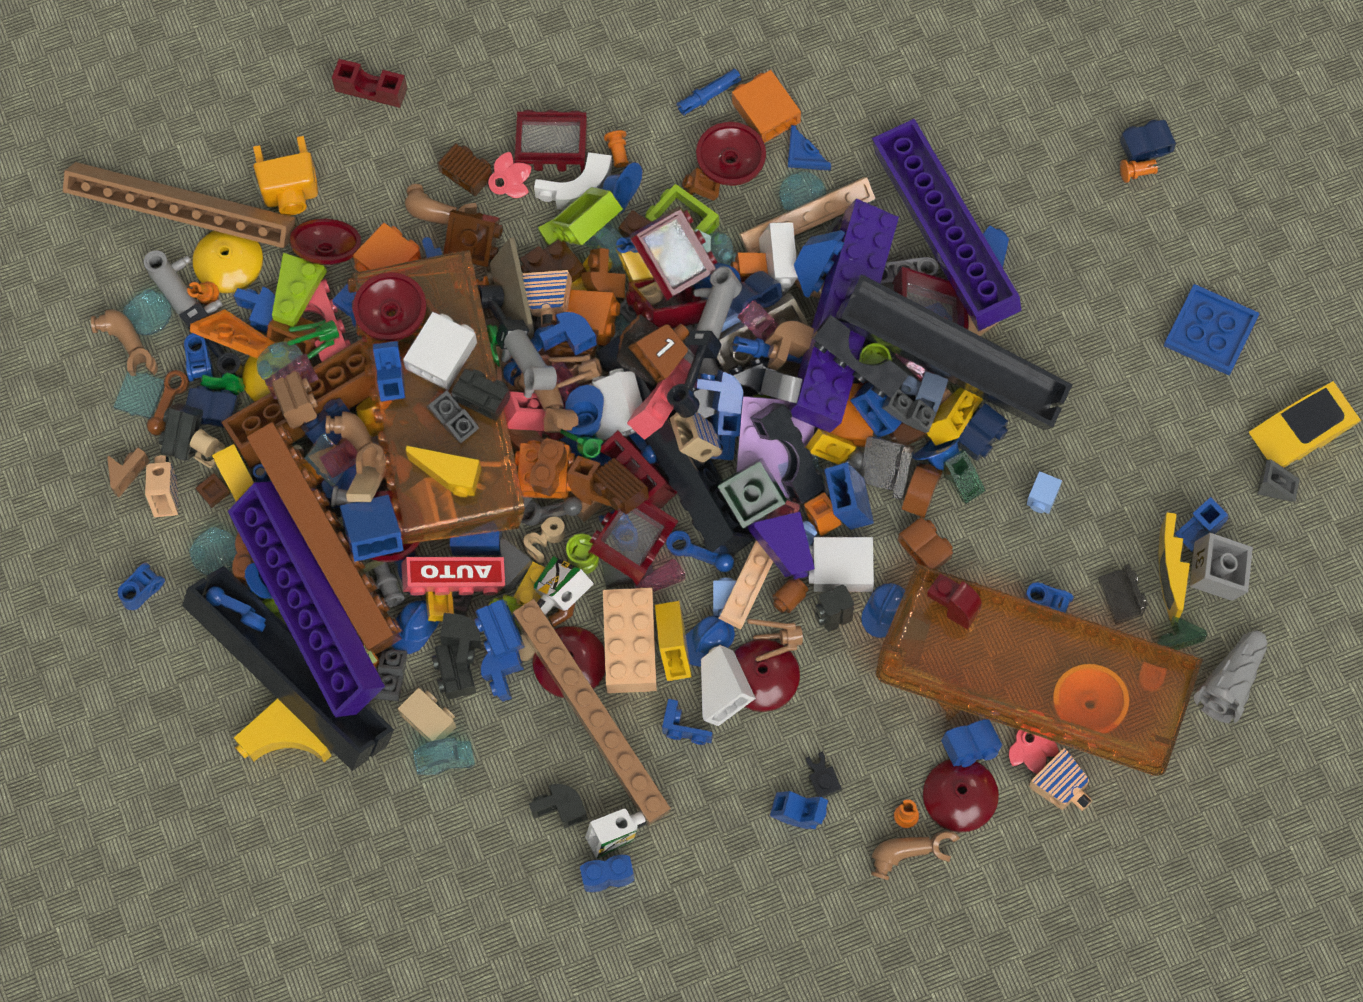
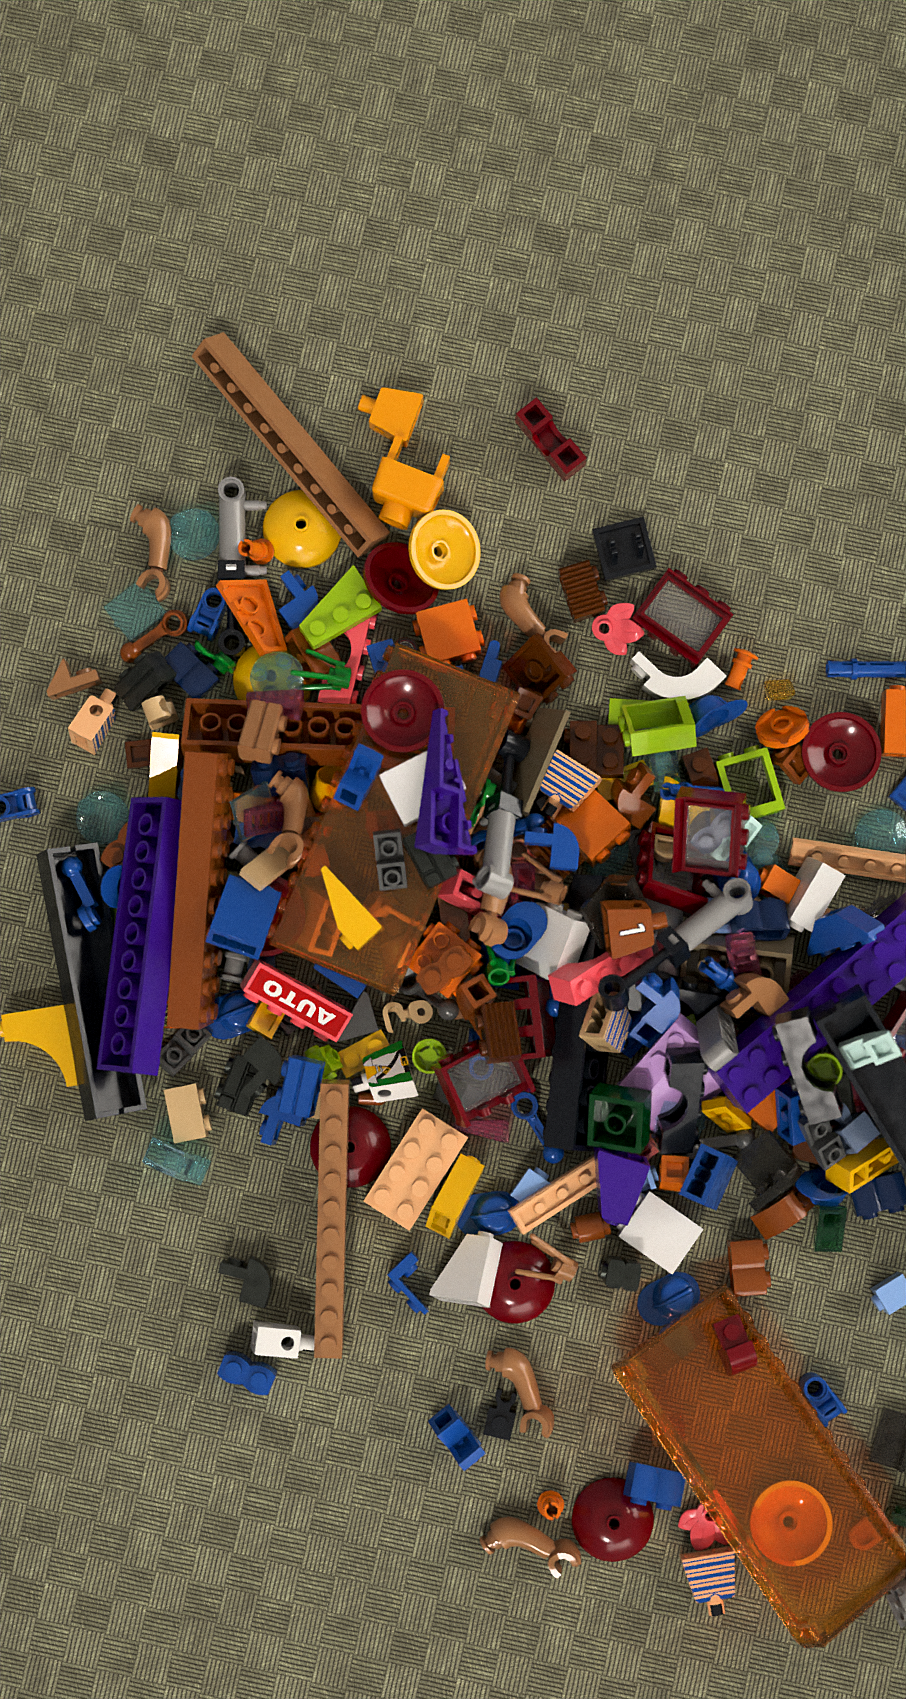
camera: 30 degrees right, 15 degrees up
(239, 138) = (393, 412): none -> light orange torso
(344, 202) = (456, 548): none -> yellow dish
(467, 353) = (441, 816): none -> dark purple wedge
(476, 123) = (624, 549): none -> black plate
(480, 263) = (528, 701): none -> reddish brown tile
(657, 146) = (778, 690): none -> clear yellow slope
(677, 165) = (782, 727): none -> orange tile
(812, 732) = (518, 1369): none -> medium nougat piece
(894, 313) = (869, 1048): none -> light aqua slope

